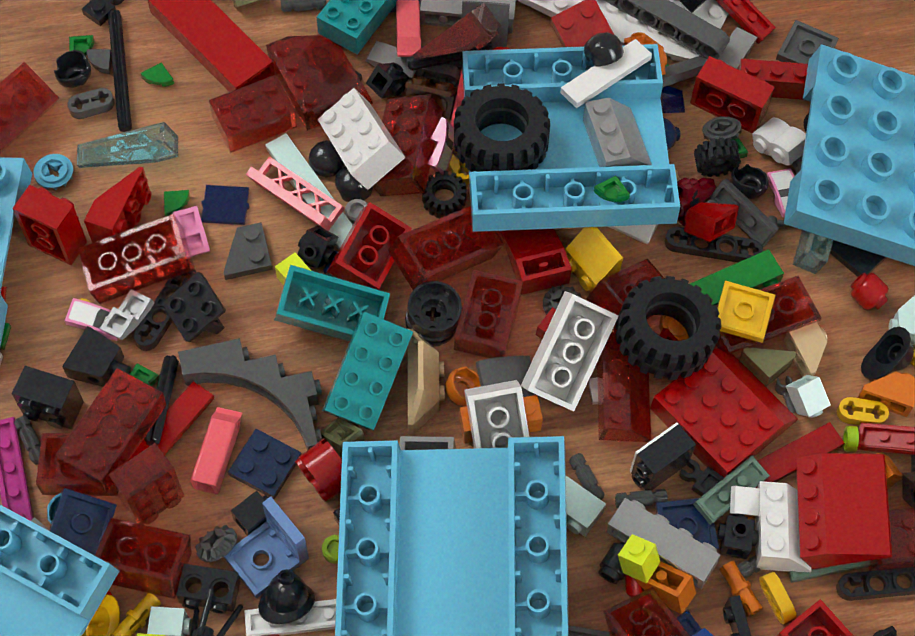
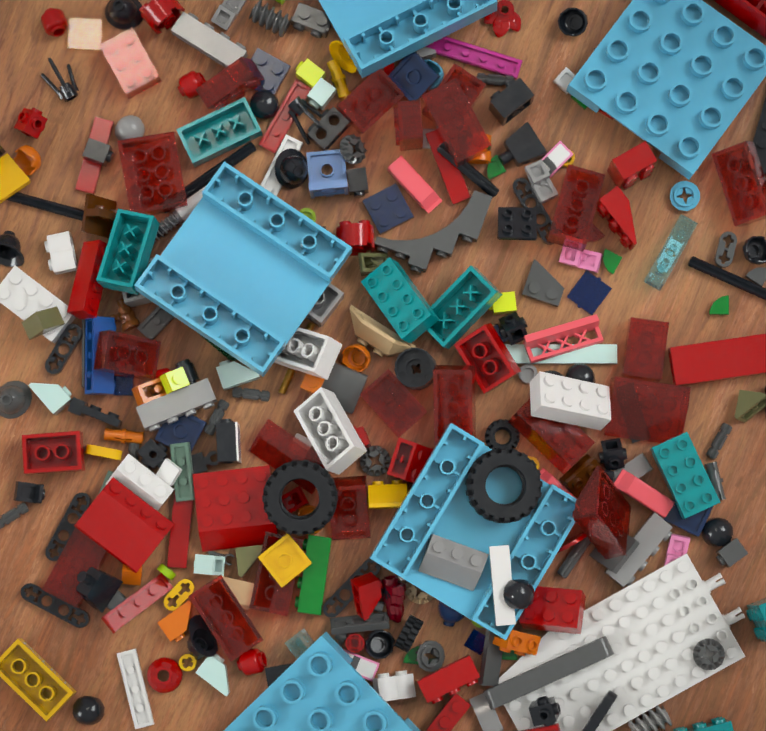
camera: 130 degrees right, 20 degrees up
(444, 139) = (539, 457): bright pink slope -> none
(612, 190) = (409, 522): green tile -> none
(768, 202) = (355, 640): none -> red wheel
(849, 340) = (226, 618): none -> clear red slope

